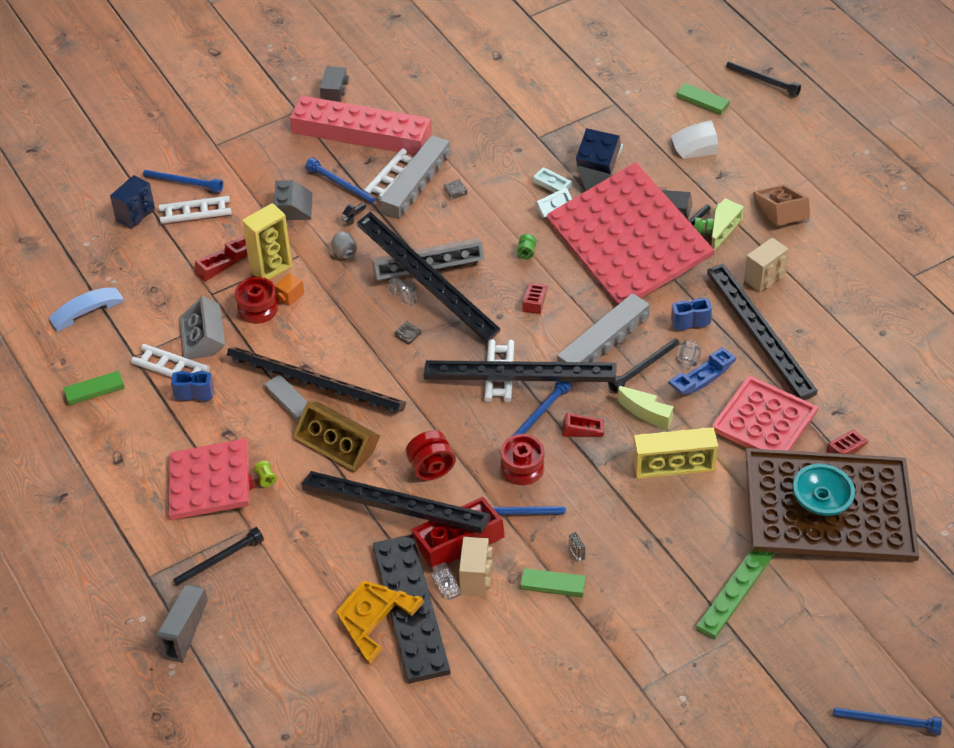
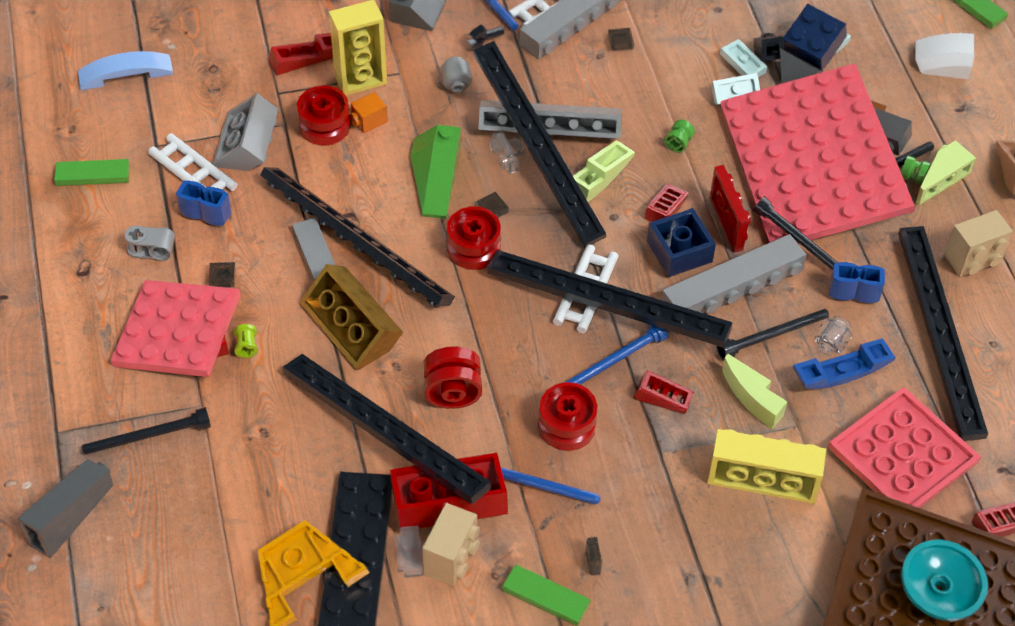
camera: 15 degrees right, 5 degrees up
(164, 425) = (152, 243): none -> light grey piece
(226, 432) = (222, 274): none -> clear smoke tile
(353, 313) = (434, 167): none -> bright green wedge
(405, 356) = (473, 237): none -> red wheel
(480, 283) = (603, 169): none -> yellowish green slope
(556, 319) = (681, 242): none -> dark blue brick
(567, 166) = (768, 46): none -> black brick
(583, 287) = (729, 208): none -> red plate
(609, 280) = (765, 210): none -> black piece

